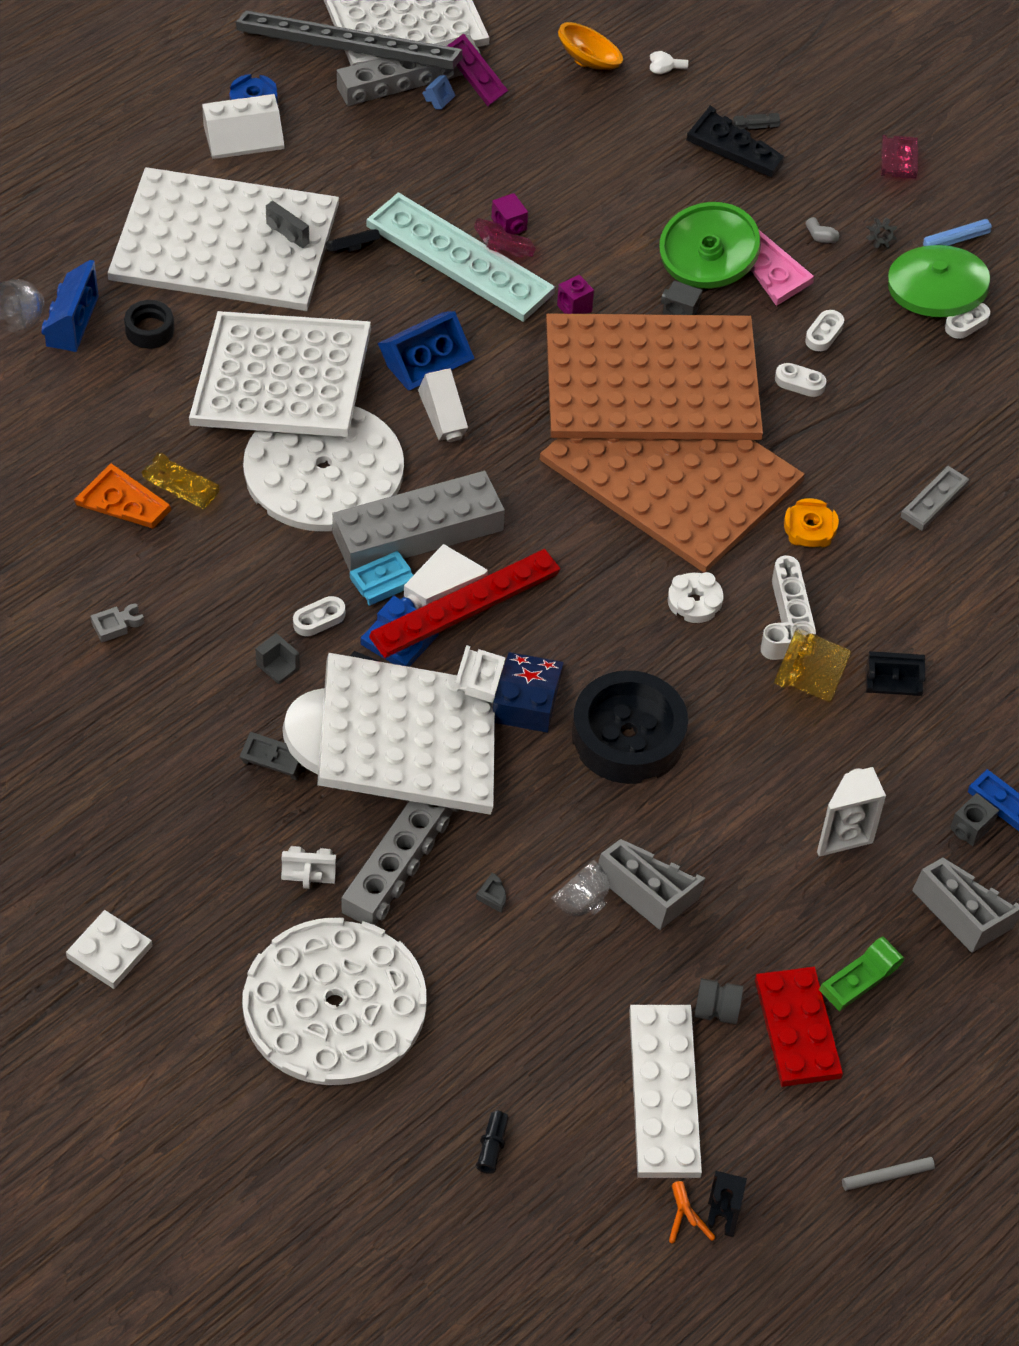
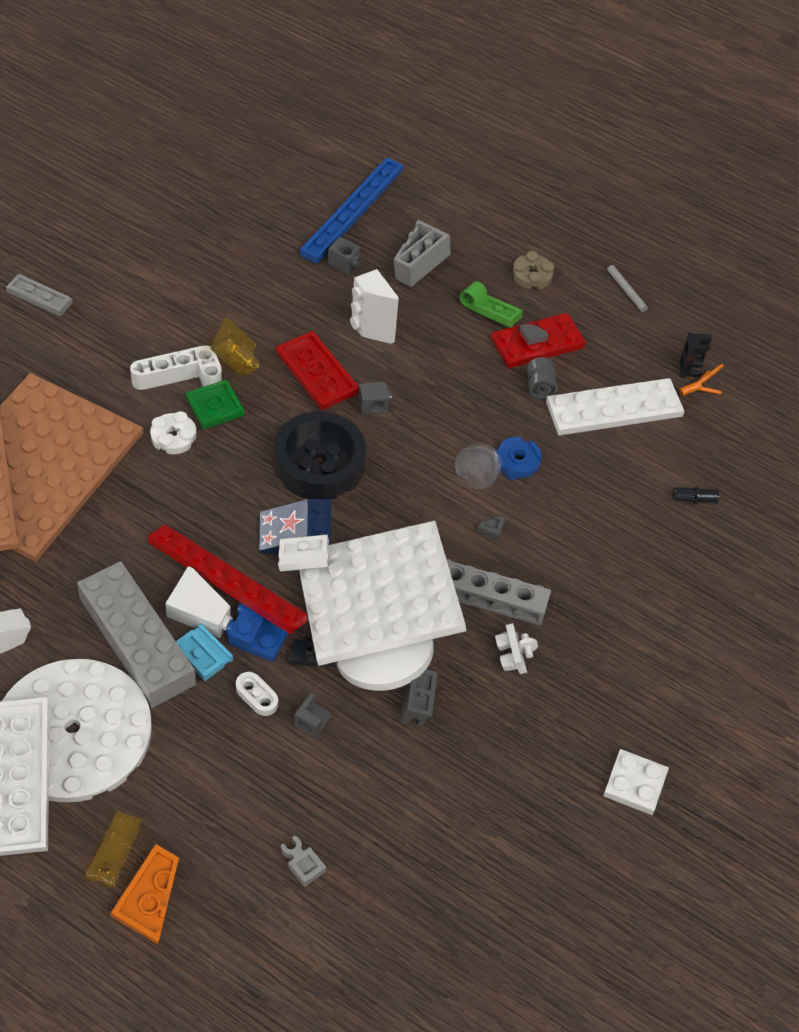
camera: 105 degrees left, 0 degrees up
(328, 1043) = (616, 642): white plate -> none
(592, 960) = (519, 468): none -> blue plate
(648, 884) = (463, 423): light grey wedge -> none
(714, 802) = (374, 398): none -> dark grey brick
(731, 640) = (215, 404): none -> green plate
(772, 753) = (317, 370): none -> red plate
(795, 1005) = (533, 334): none -> dark grey tile
(808, 535) = (82, 375): light orange plate -> none
(895, 673) = (224, 303): black hinge -> none
(934, 1037) = (533, 261): none -> dark tan plate

